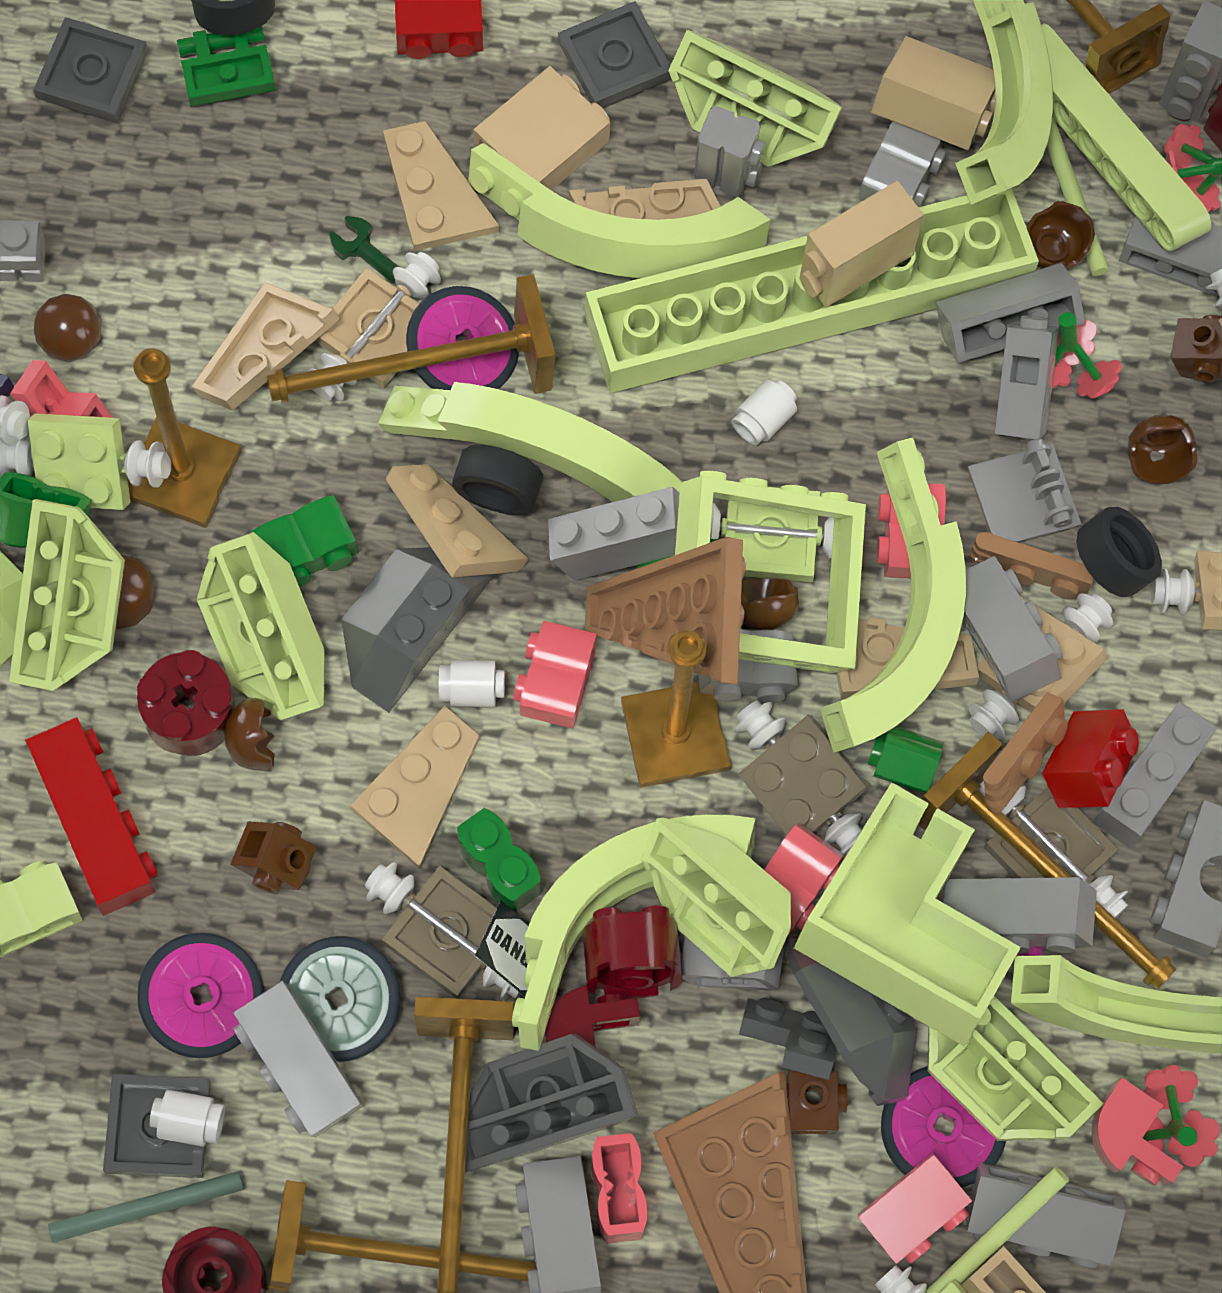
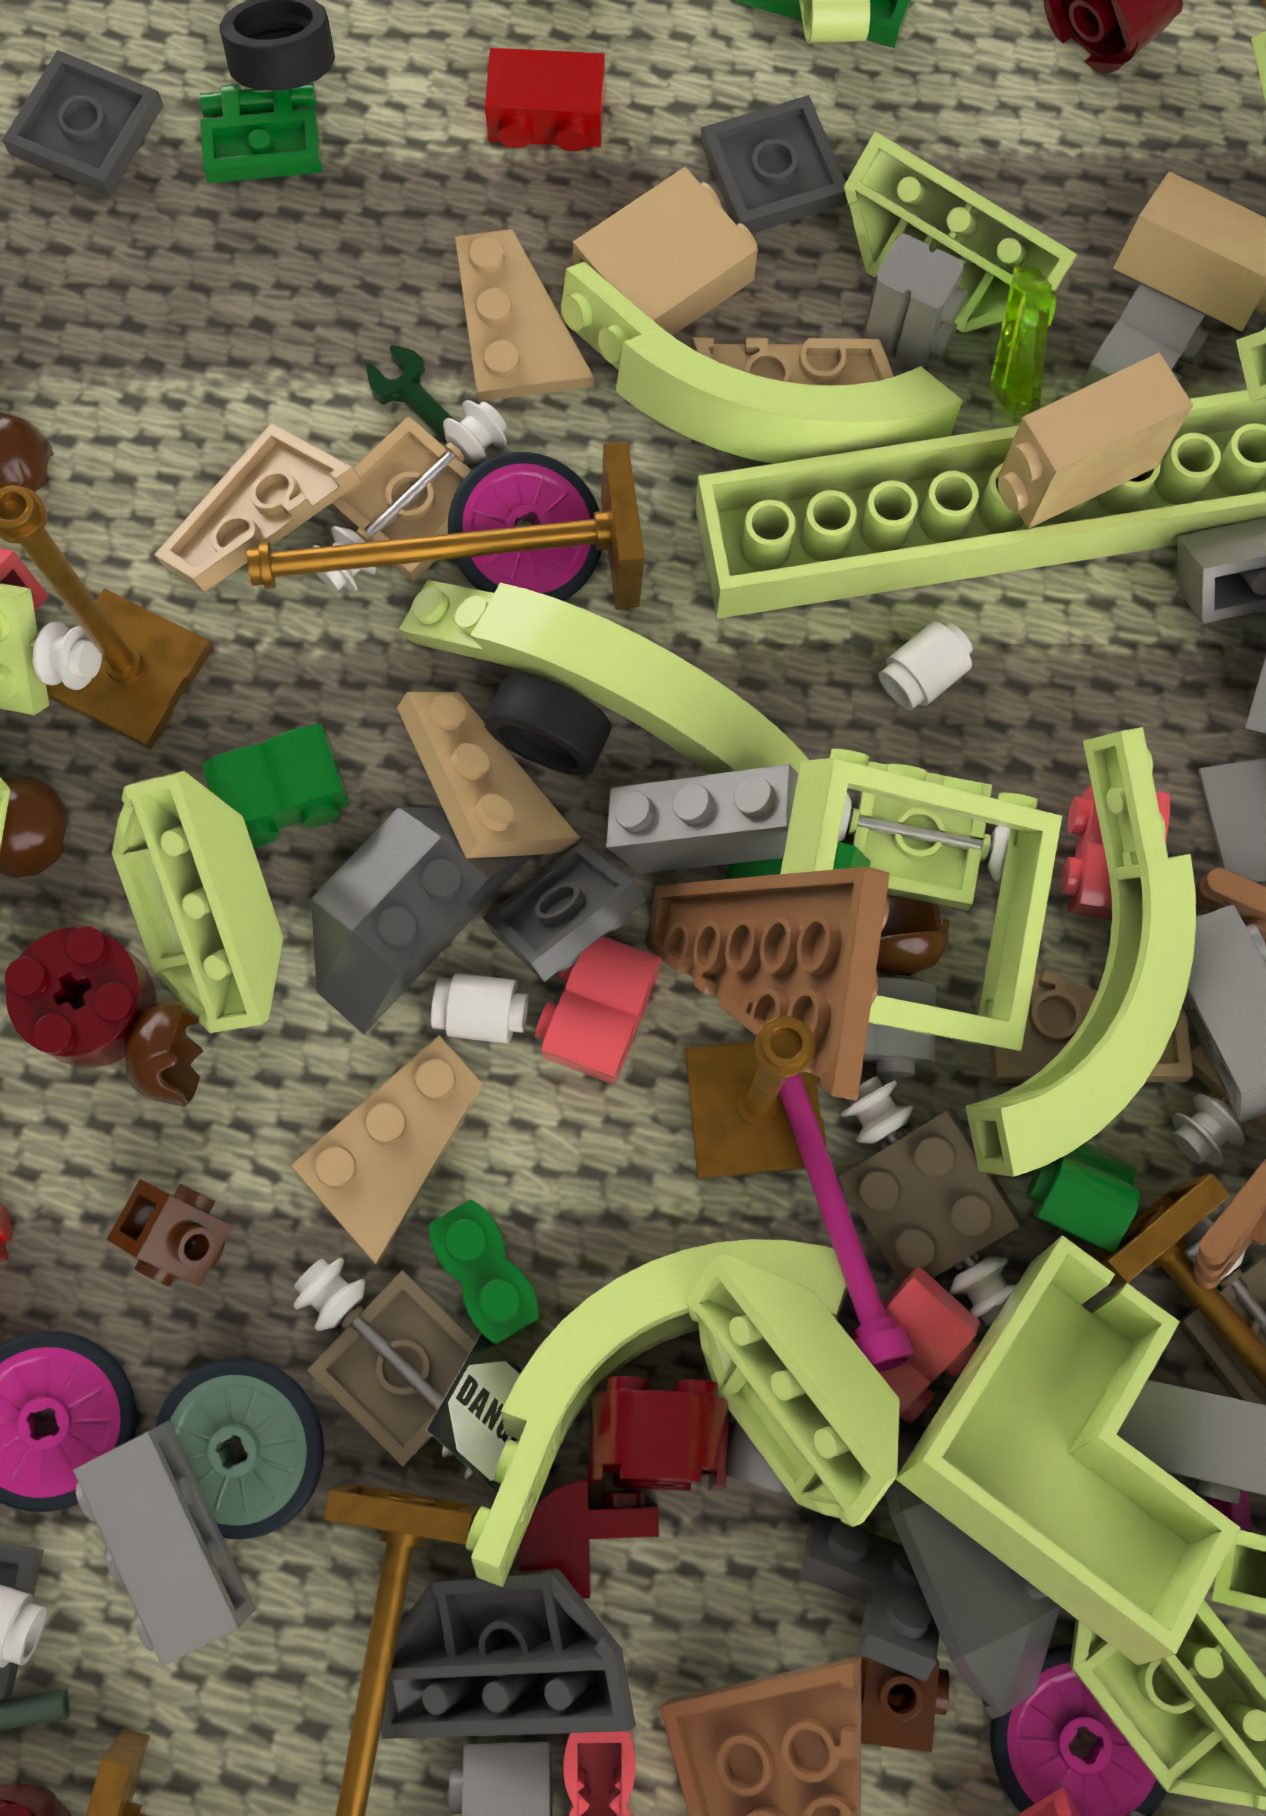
camera: 10 degrees right, 5 degrees up
(524, 607) = (564, 910): none -> dark grey plate
(773, 860) = (877, 1335): none -> dark pink piece
(809, 174) = (1022, 343): none -> clear neon green wing

